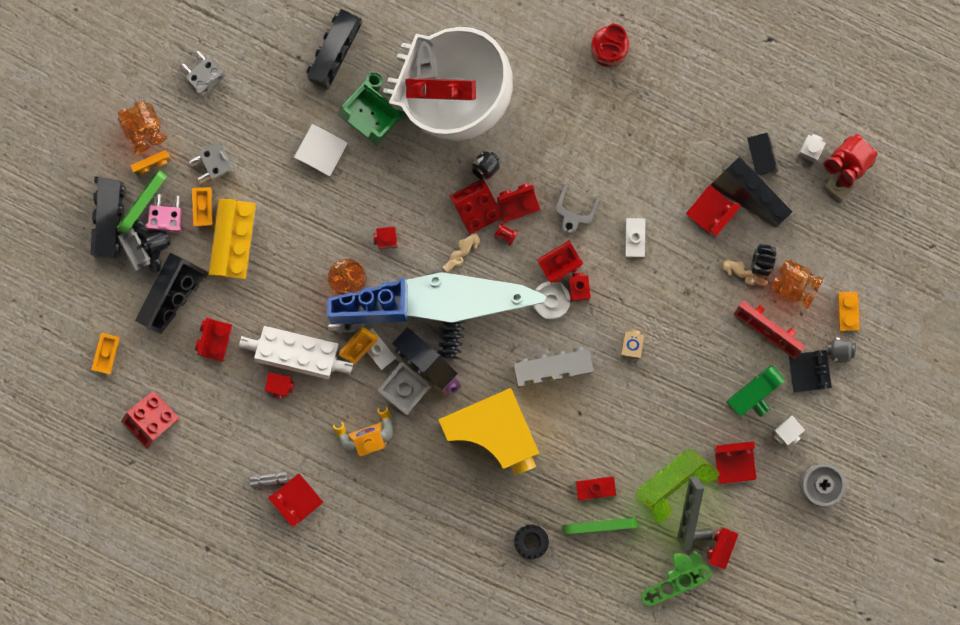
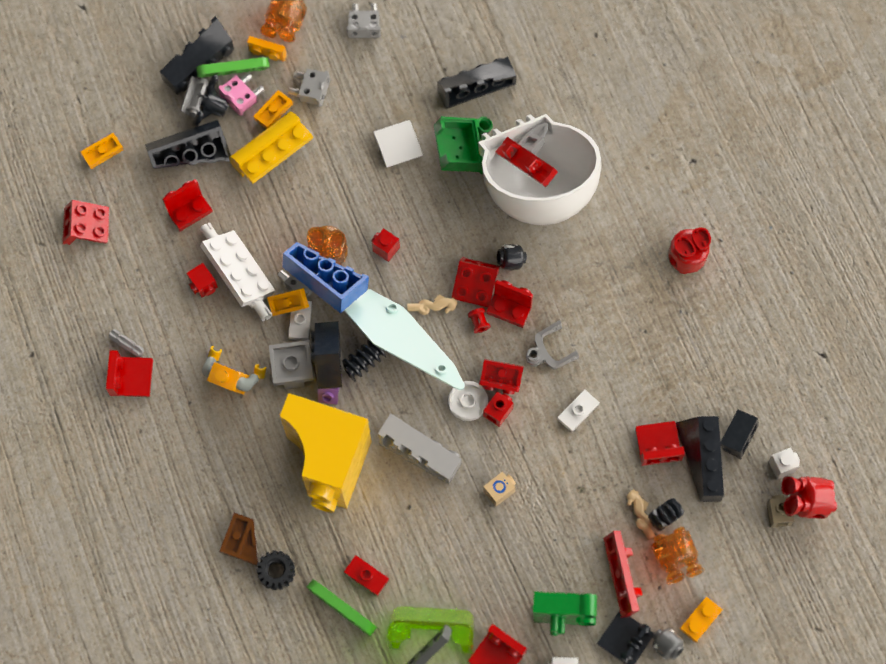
camera: 40 degrees right, 15 degrees down
(486, 543) = (240, 540): none -> reddish brown wing

